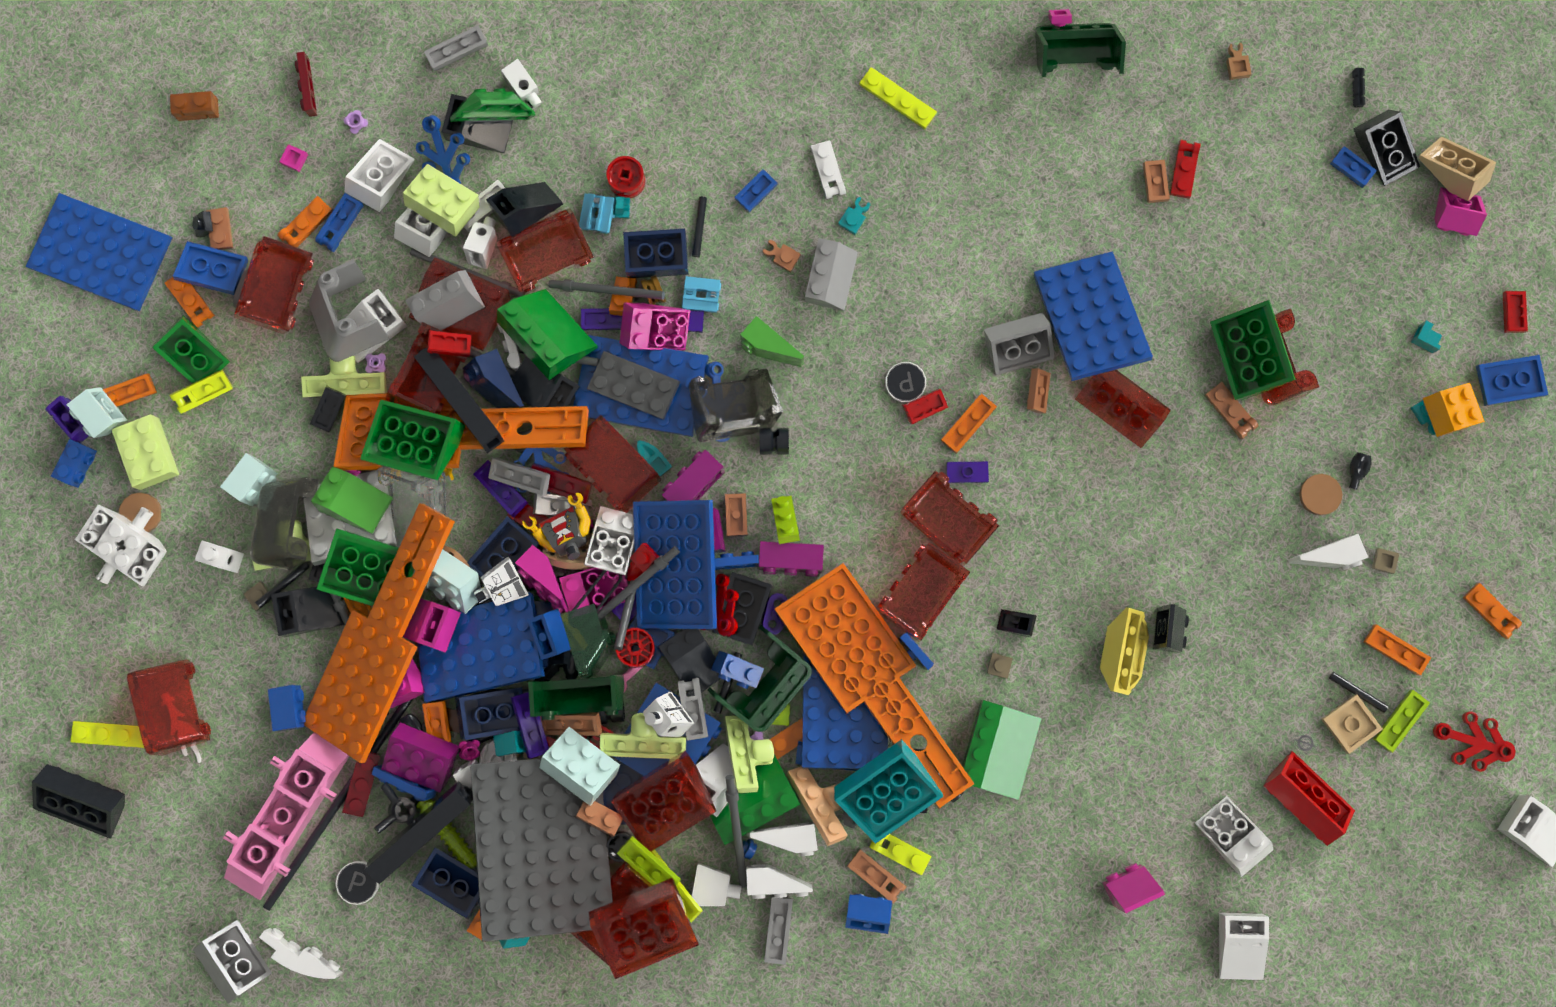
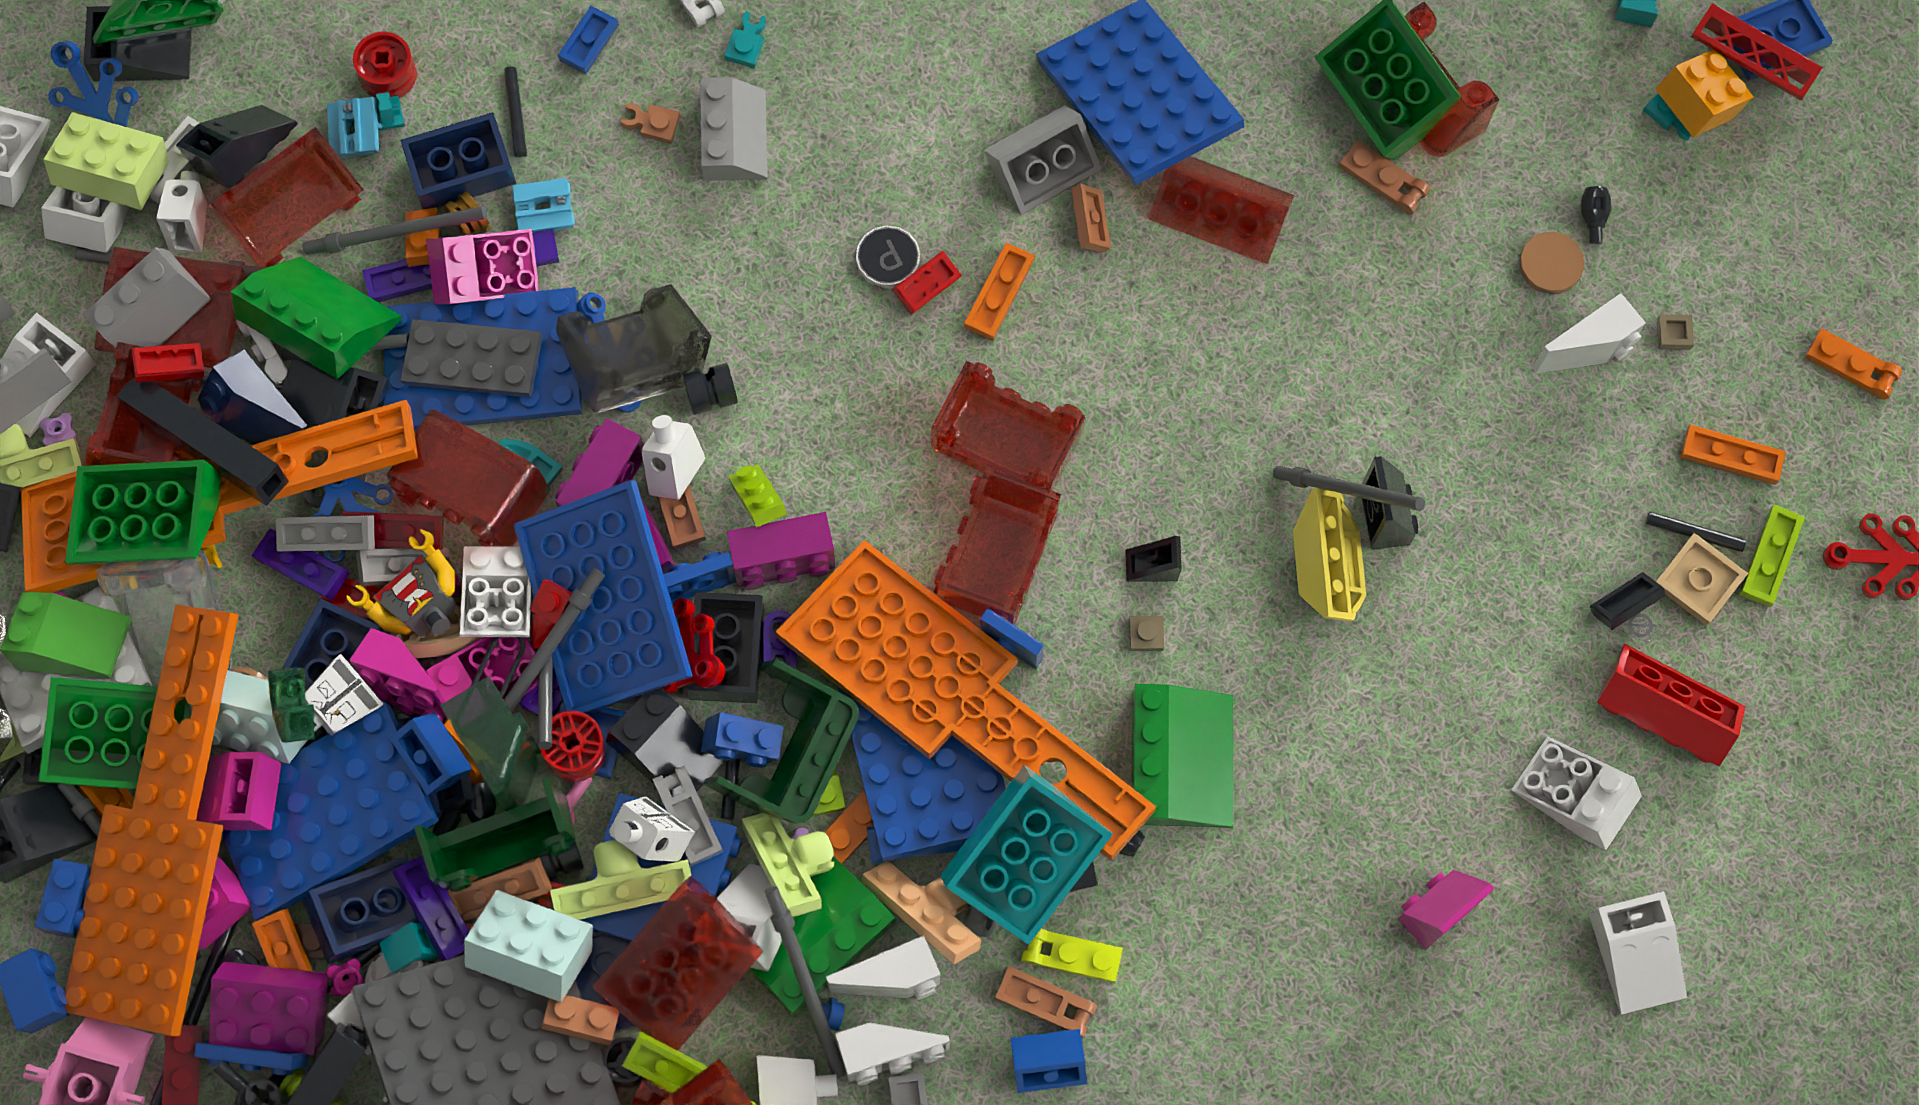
camera: 20 degrees left, 10 degrees down
(317, 658) = (64, 899): none -> blue brick
(472, 590) = (287, 698): none -> clear green slope
(738, 482) = (671, 457): none -> white torso
(766, 343) = (666, 249): bright green slope -> none
(967, 472) = (1019, 362): dark purple plate -> none
(1124, 596) = (1303, 478): none -> dark grey bar
(1302, 725) = (1627, 600): none -> black tile
(1499, 388) = (1759, 47): none -> red fence

